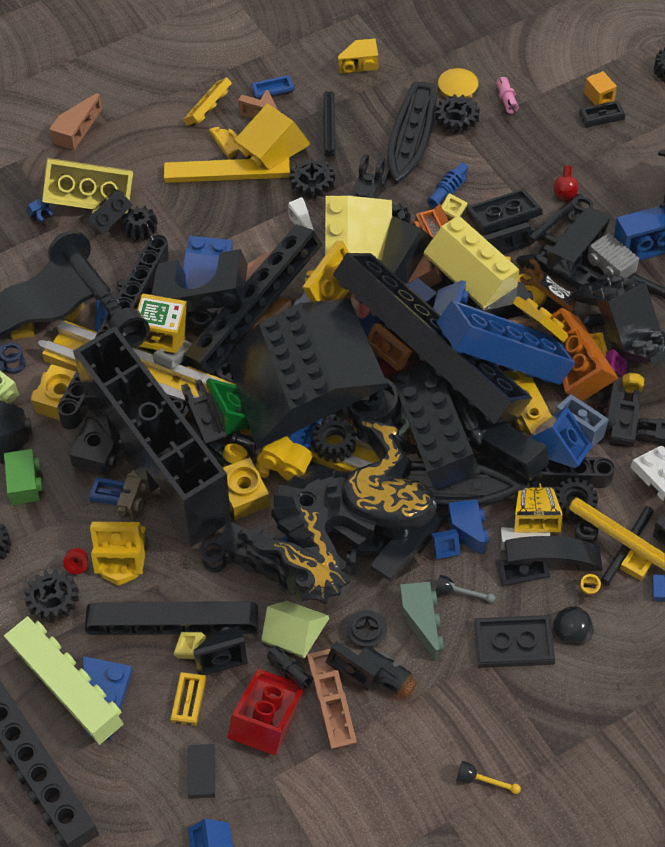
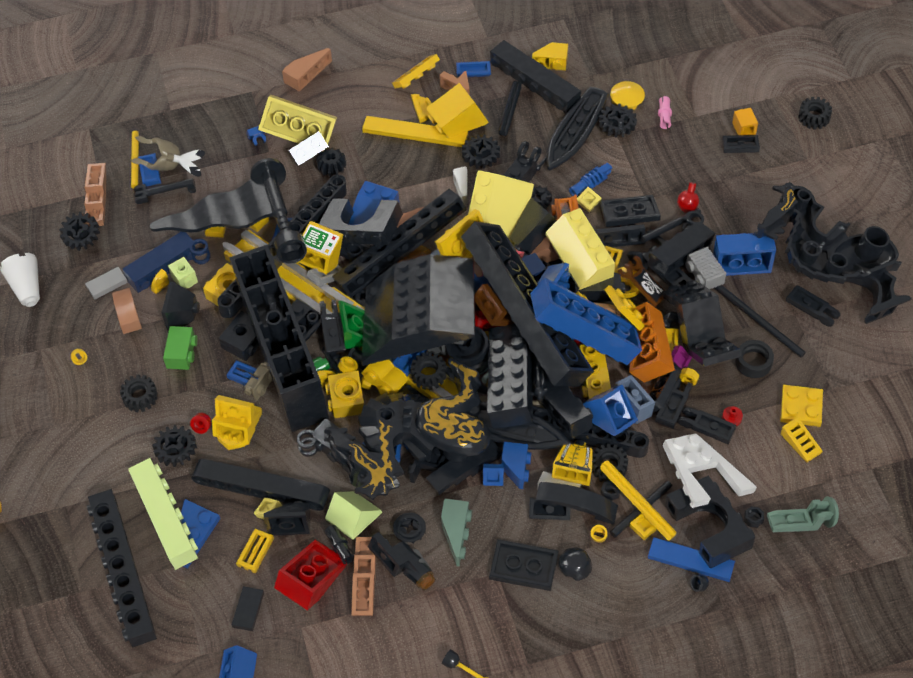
camera: 15 degrees right, 0 degrees up
(347, 82) = (534, 76): none -> black brick
(446, 586) = (482, 508): hinge -> none

